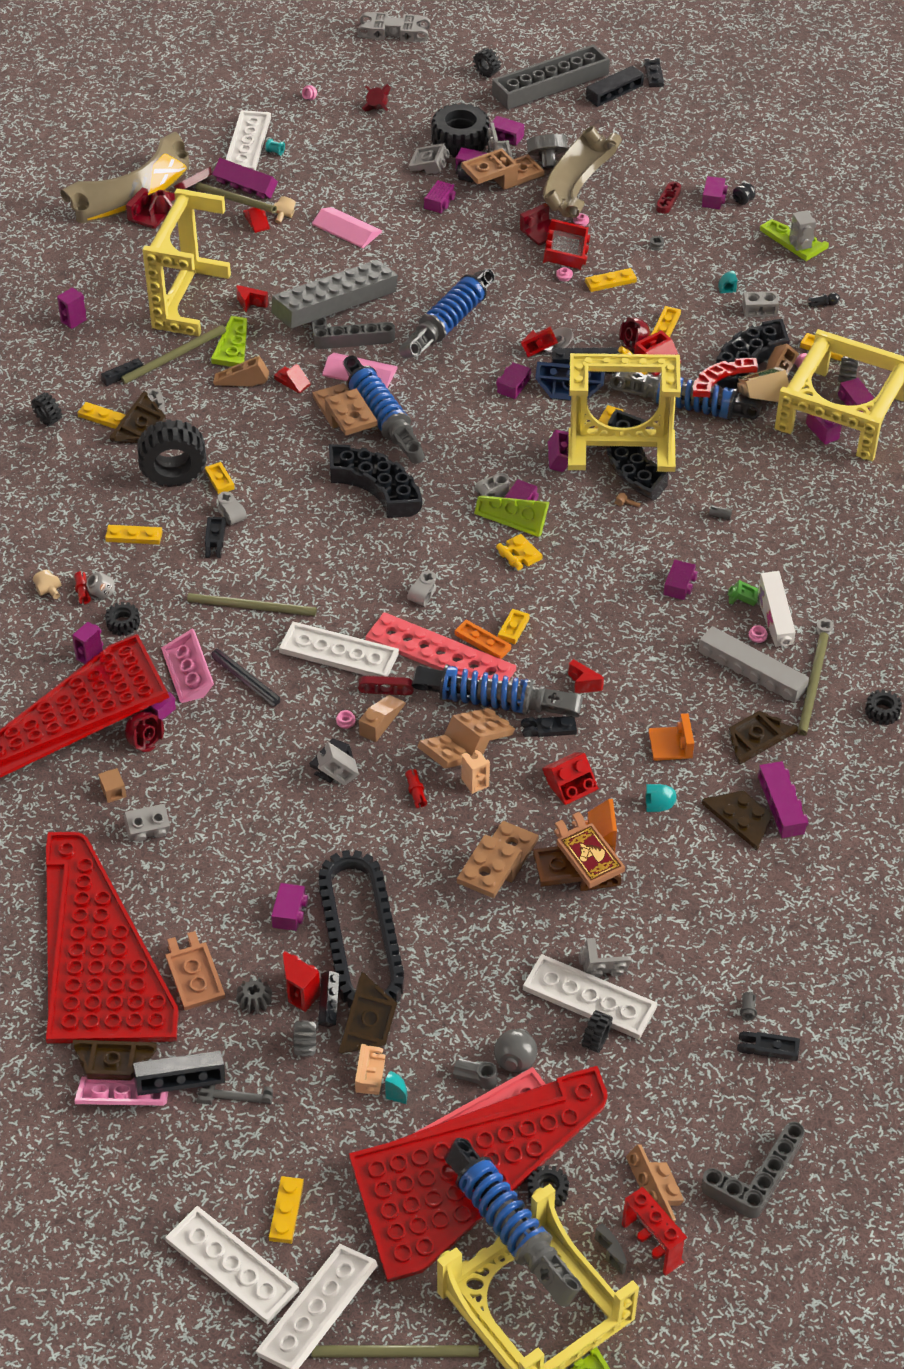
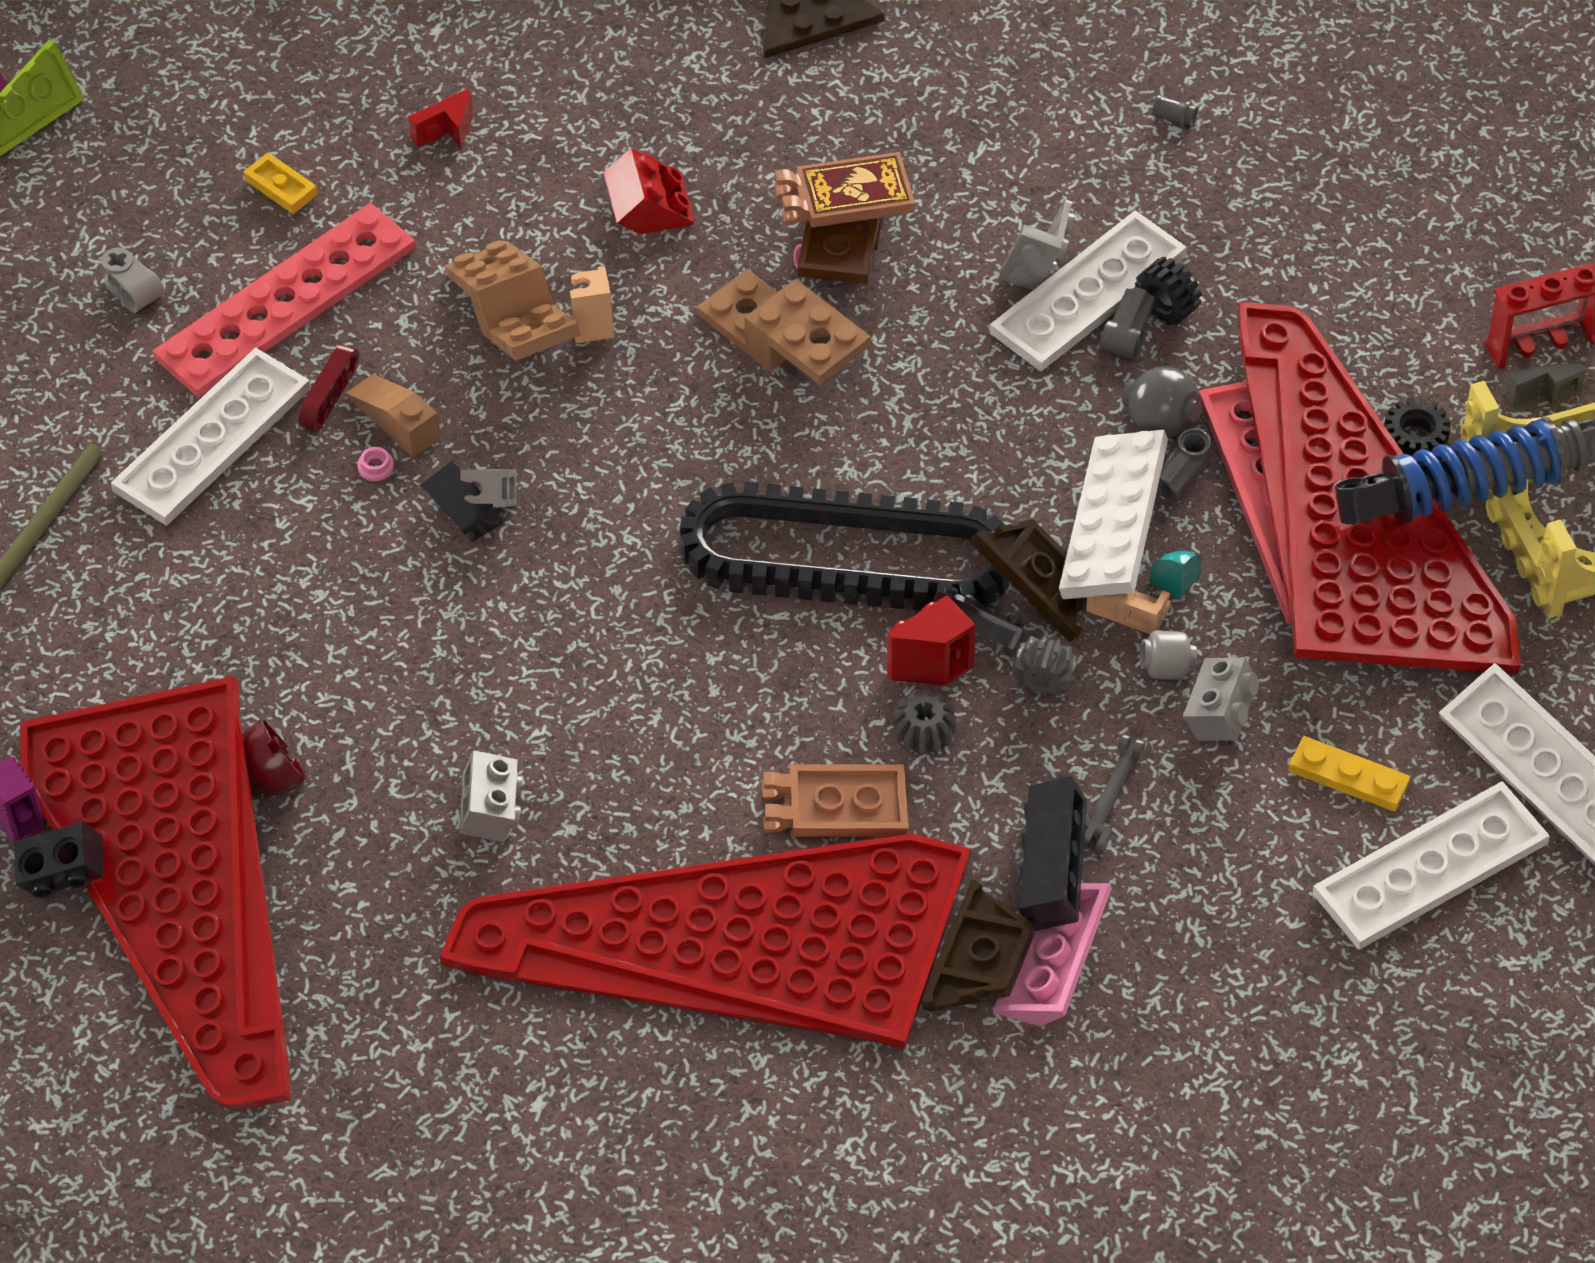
camera: 70 degrees left, 5 degrees up
(59, 671) = (58, 860): none -> black brick
(112, 785) = (370, 836): medium nougat brick -> none
(187, 667) = (132, 661): bright pink slope -> none
(246, 677) = (200, 587): black axle -> none
(288, 907) = (758, 633): magenta brick -> none
(310, 1129) = (1221, 699): none -> light grey brick
(335, 1097) = (1167, 655): none -> light grey head
(416, 788) = (577, 403): red pin -> none
(421, 1044) = (1113, 515): none -> white plate
(482, 639) = (288, 232): orange plate -> none
(495, 692) = (424, 239): piece -> none
(522, 548) = (107, 133): yellow plate -> none
(549, 726) = (522, 195): black hinge -> none
(562, 1020) = (1125, 332): none -> dark grey piece
(604, 821) = (763, 158): orange slope -> none
(656, 1179) = (1441, 306): medium nougat bracket -> none
(659, 797) = (738, 102): teal brick -> none
(673, 742) = (632, 45): orange bracket -> none
(754, 1193) = (1503, 194): dark grey beam -> none
(769, 1045) = (1254, 106): black hinge -> none

